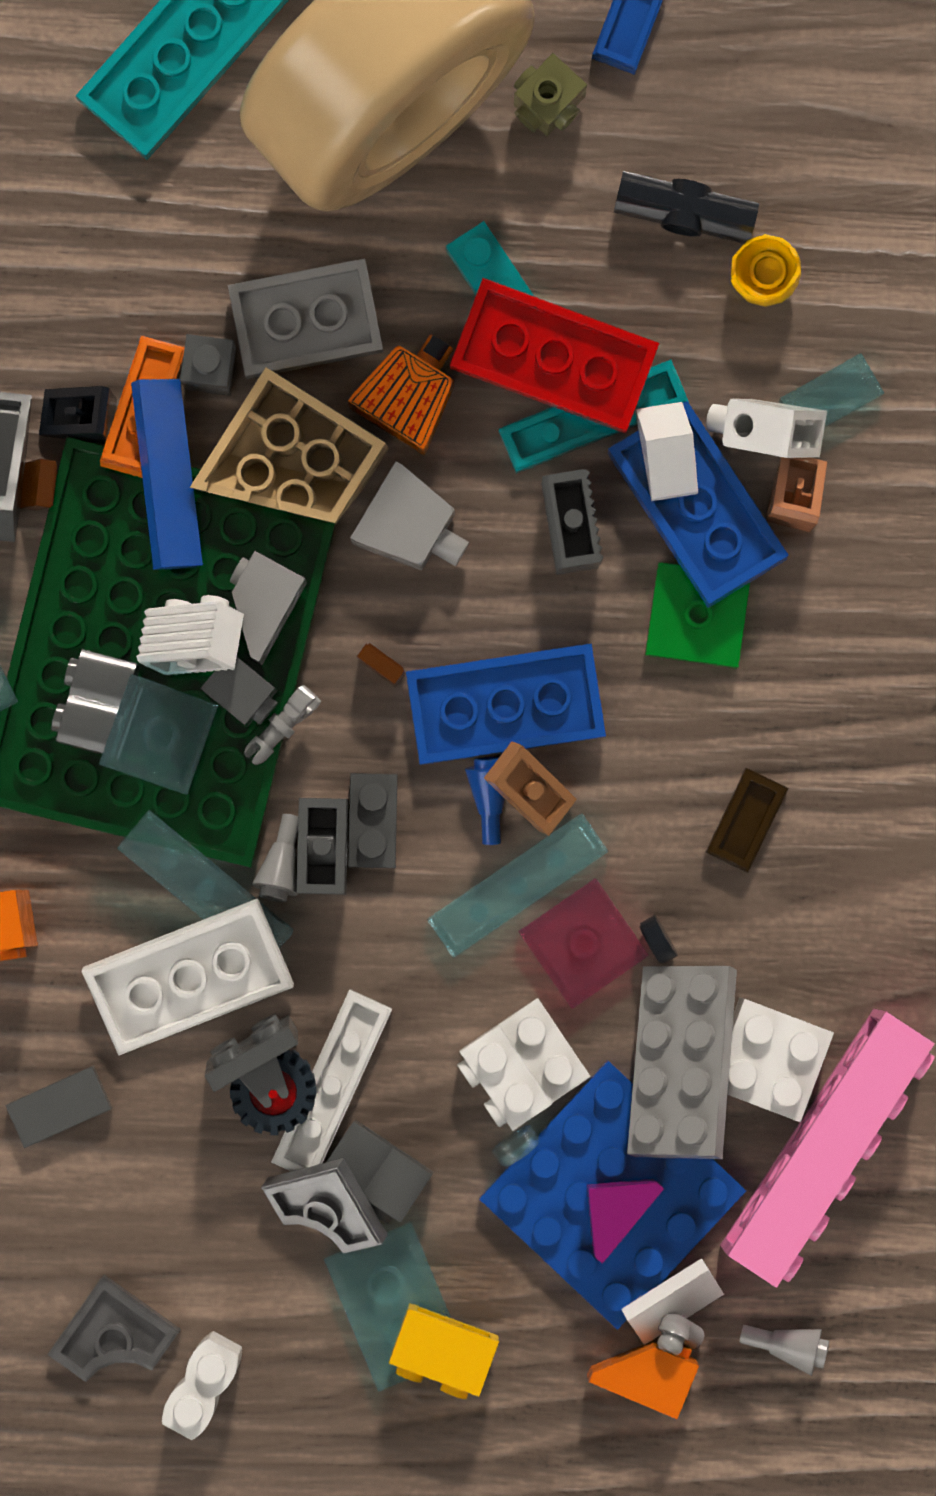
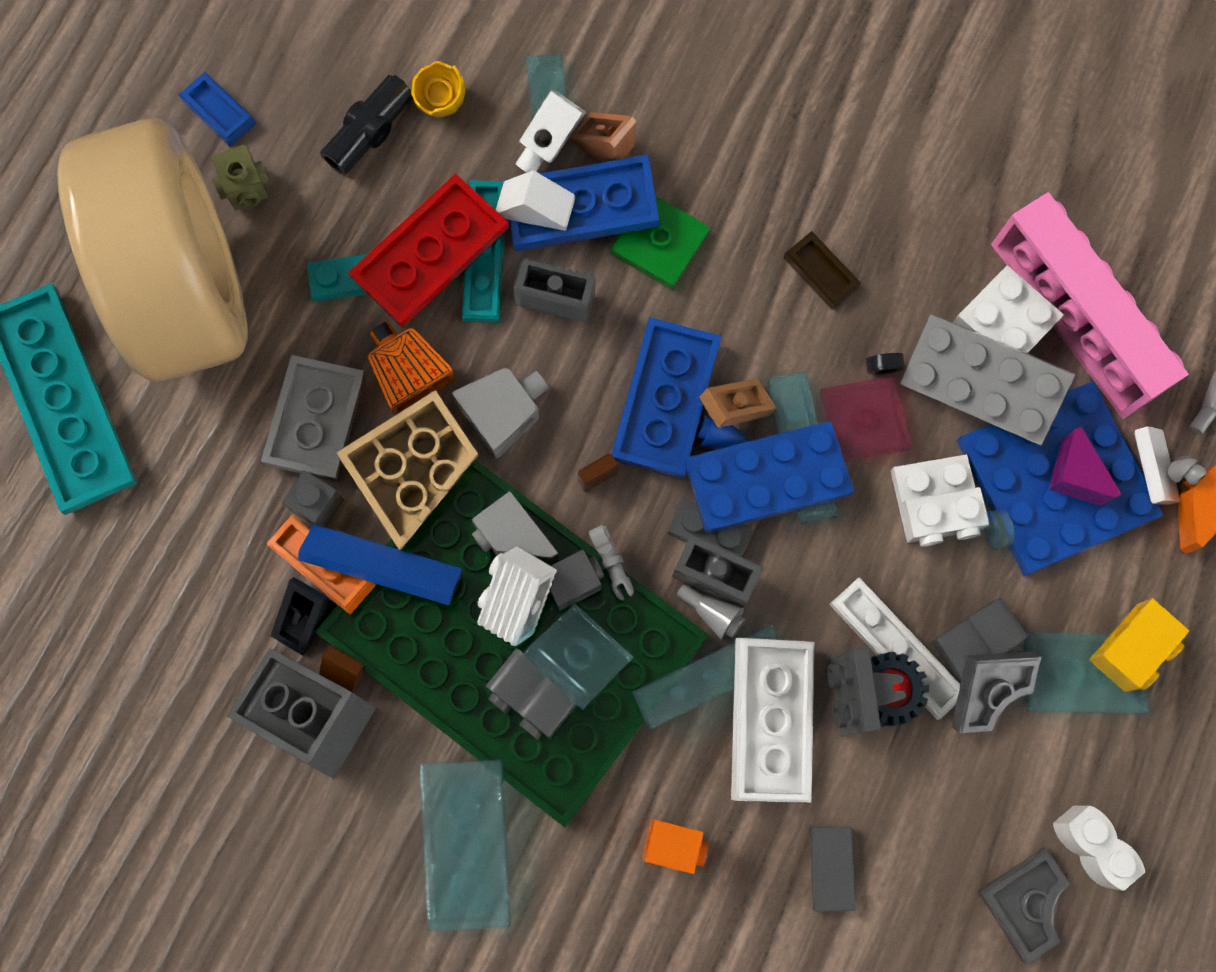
camera: 70 degrees left, 10 degrees down
(459, 859) = (768, 476): none -> blue plate

